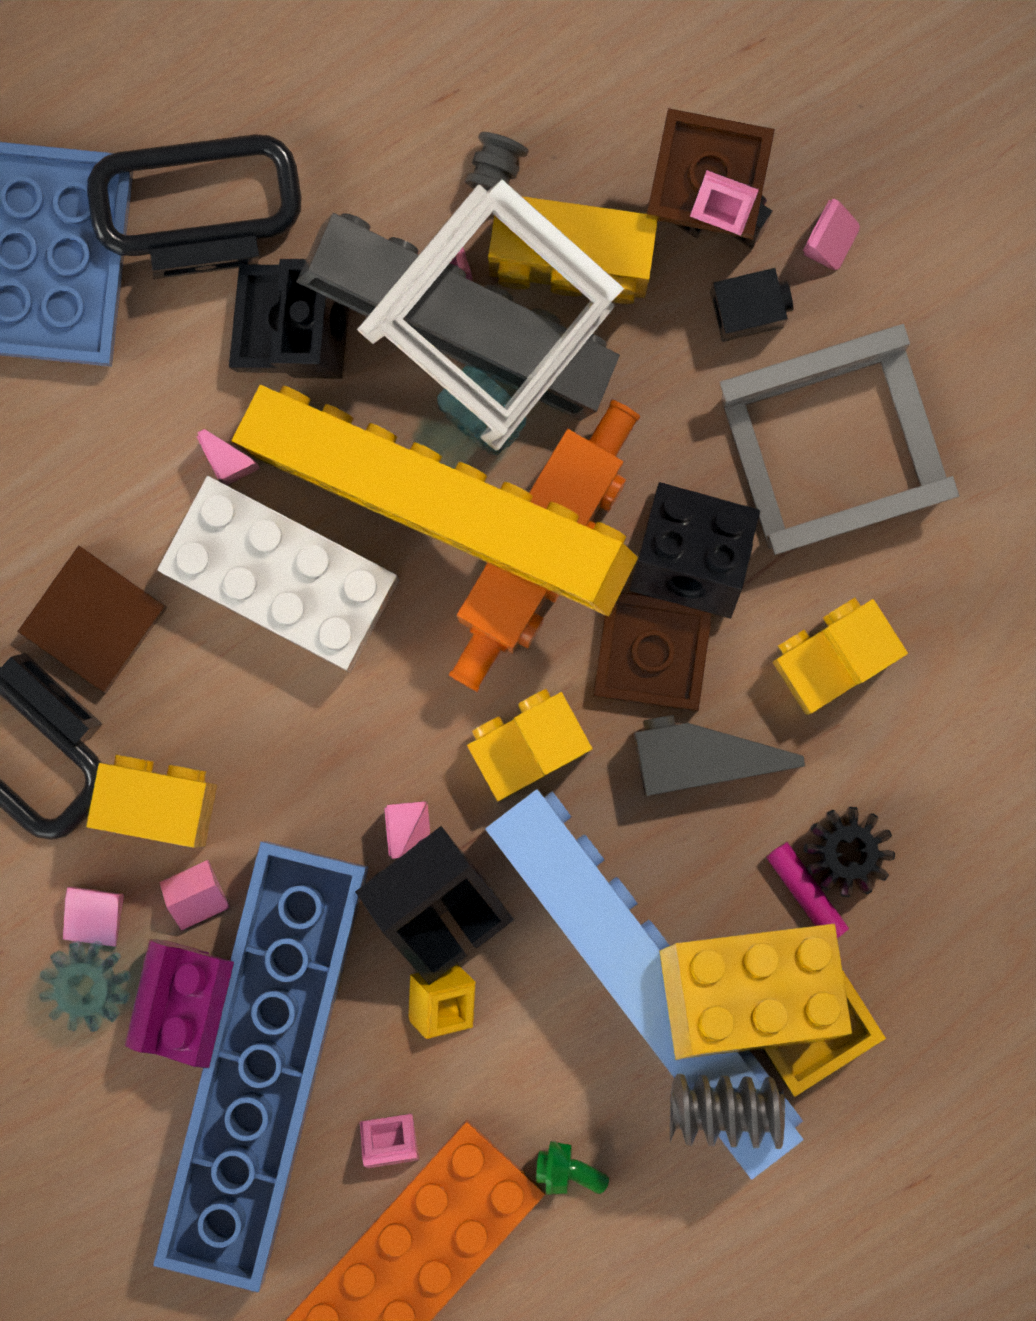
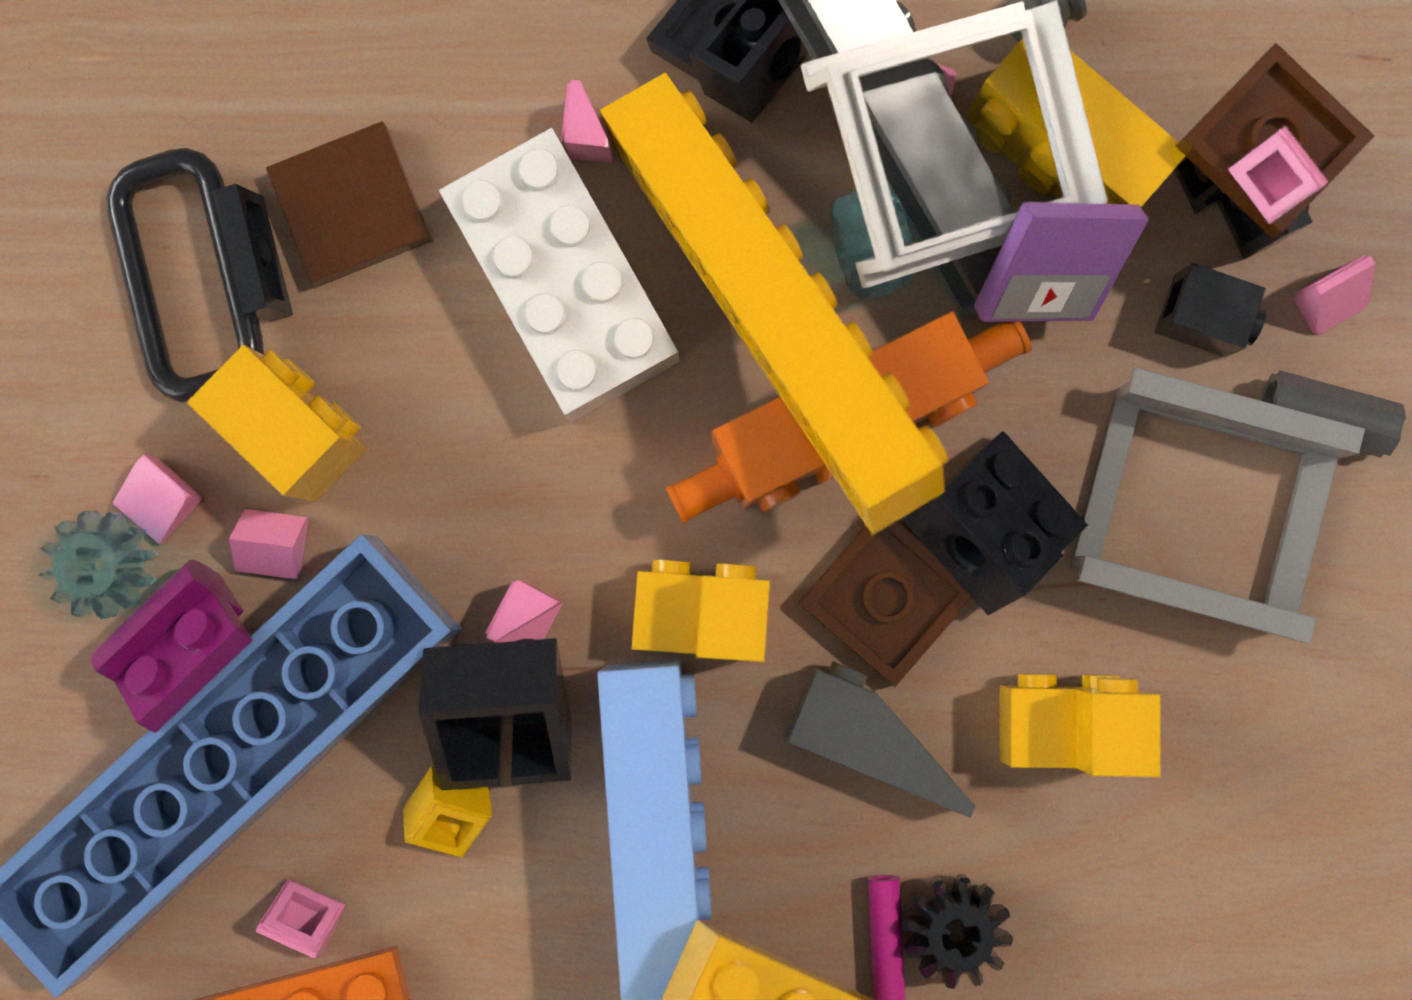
camera: 30 degrees right, 0 degrees up
(619, 347) = (1059, 261): none -> medium lavender tile
(908, 307) = (1378, 416): none -> dark grey axle

